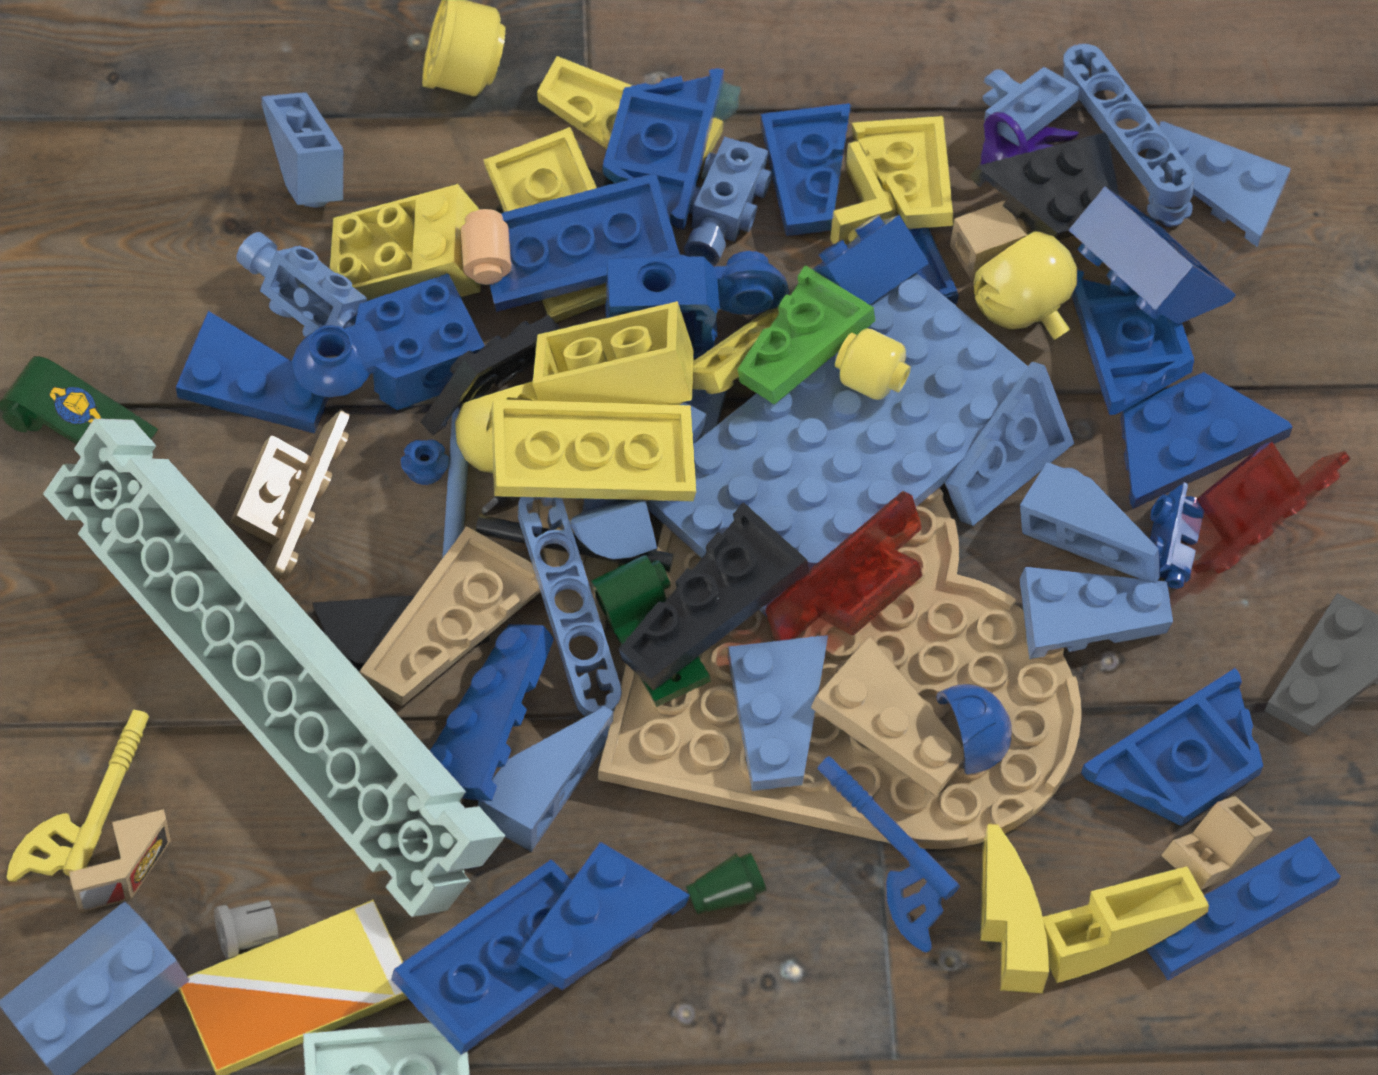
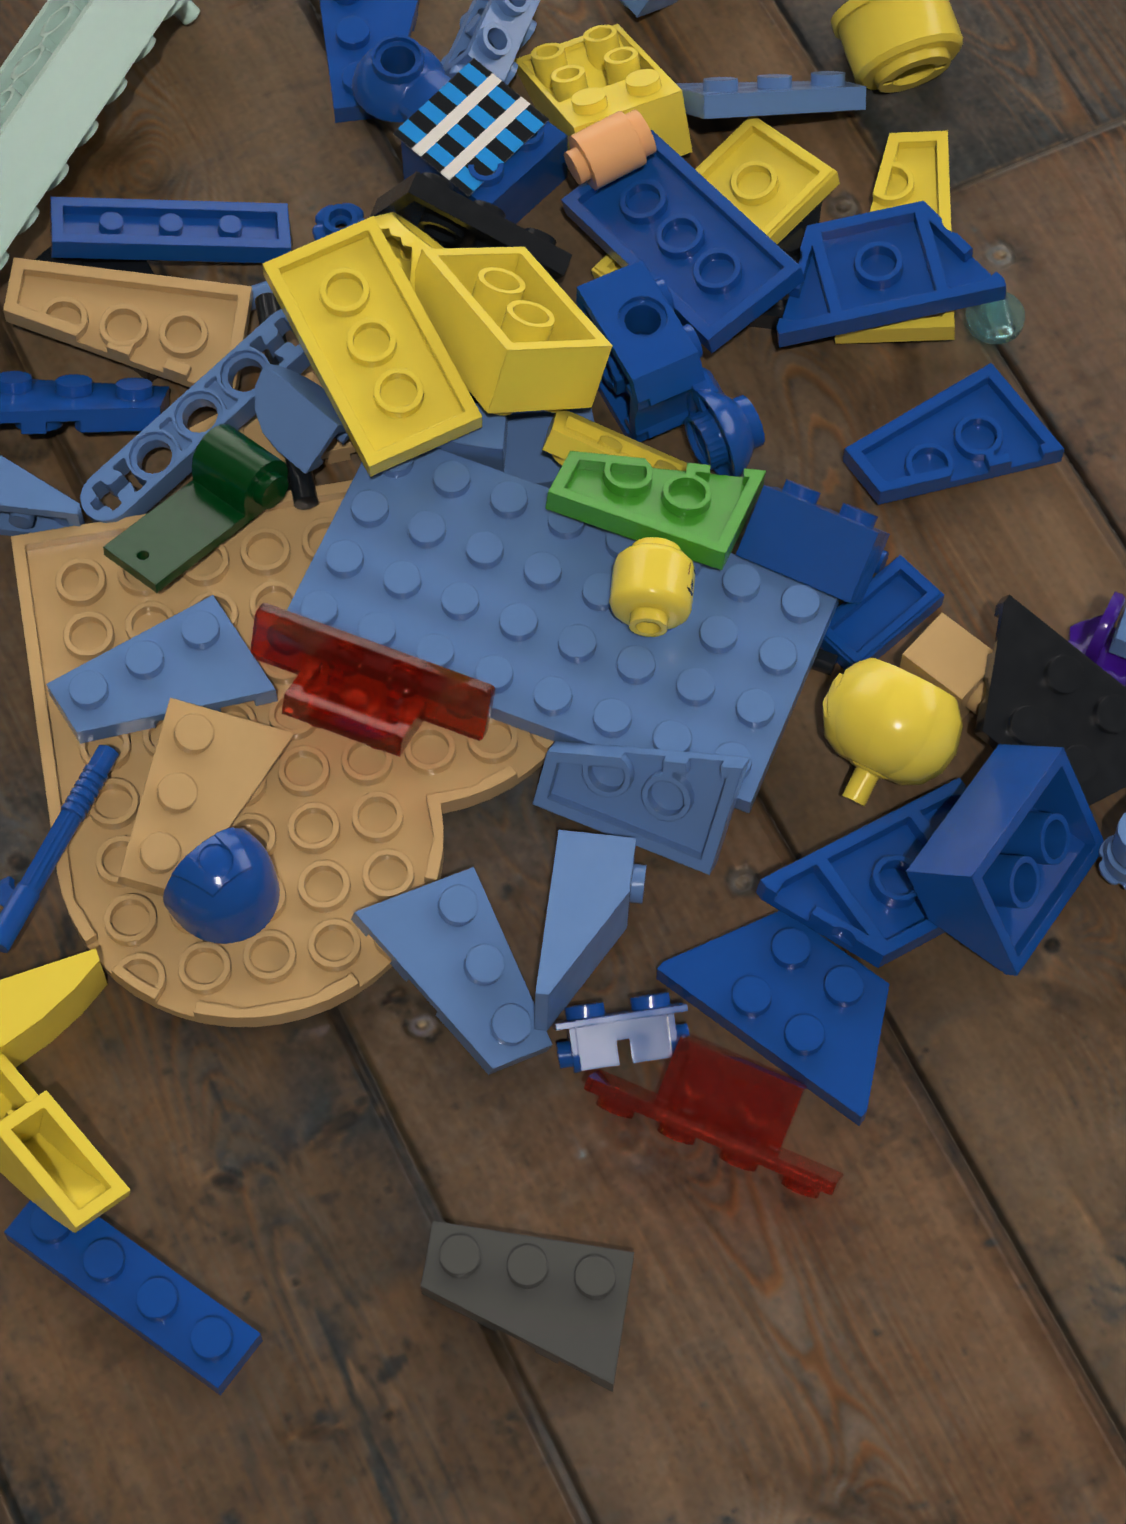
camera: 70 degrees right, 5 degrees up
(283, 490) = (227, 113): tan bracket -> none
(376, 566) = (168, 230): none -> blue plate
(414, 325) = (471, 123): none -> sticker
(471, 144) = (772, 95): none -> medium blue wing
(724, 589) = (270, 554): black wing -> none
(739, 176) = (854, 376): medium blue brick -> none
(873, 199) = (930, 536): light yellow bracket -> none
(911, 167) = (1011, 549): light yellow wing -> none
(1185, 755) = (315, 1151): blue wing -> none
(1218, 842) = (202, 1229): tan slope -> none

